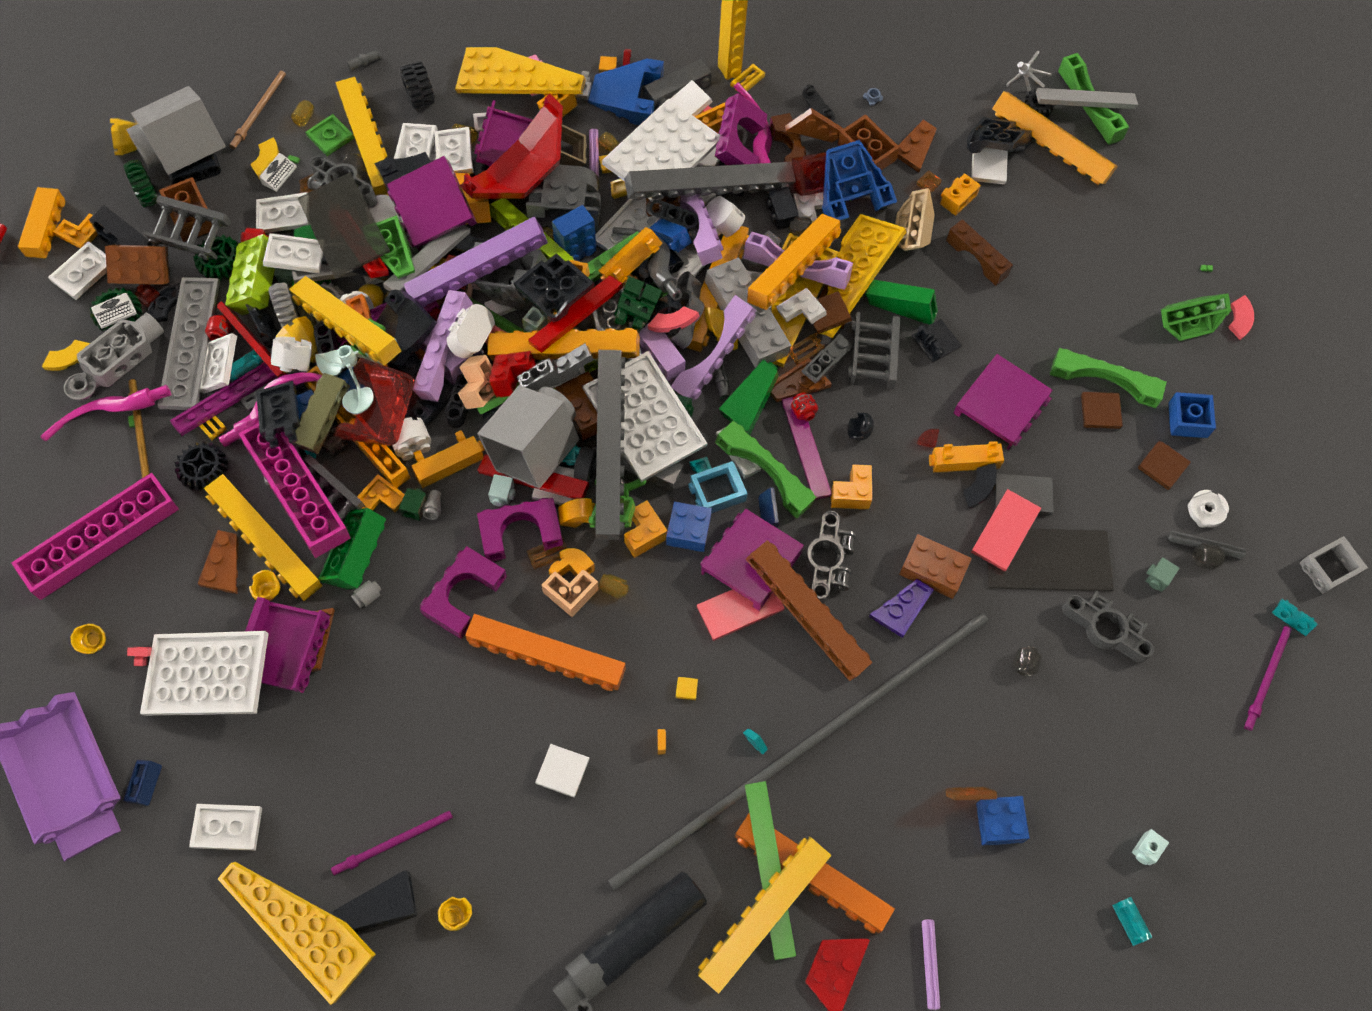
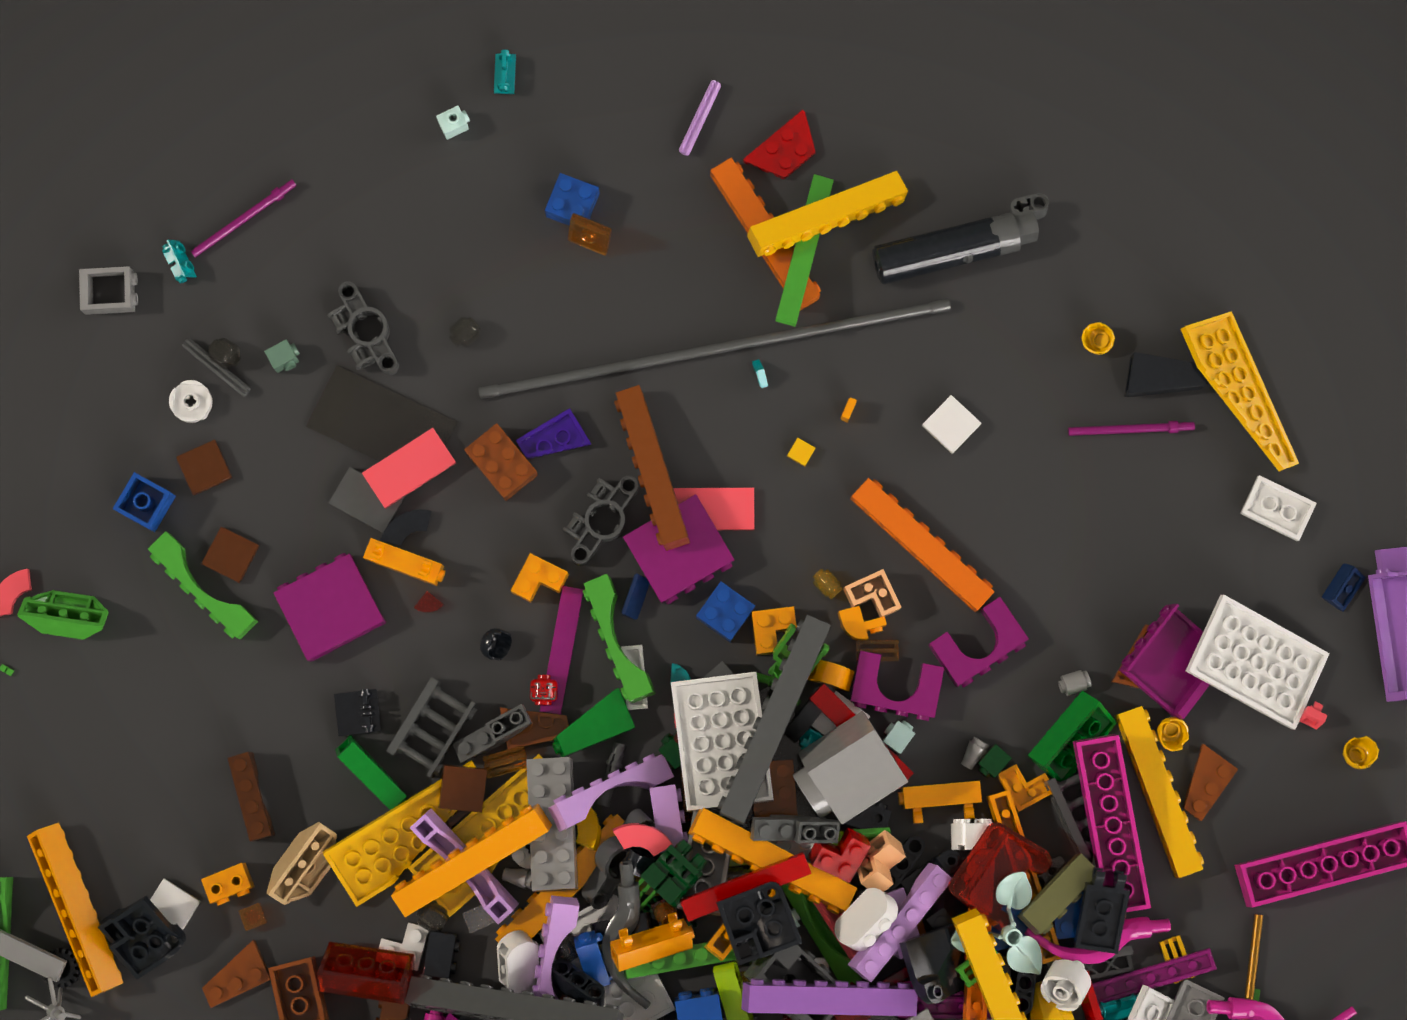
camera: 155 degrees left, 15 degrees up
(197, 461) = (1194, 911): black gear -> none
(738, 497) = (654, 641): medium azure window -> none
(803, 303) = (482, 811): white plate -> none
(851, 176) = (349, 950): blue wedge -> none

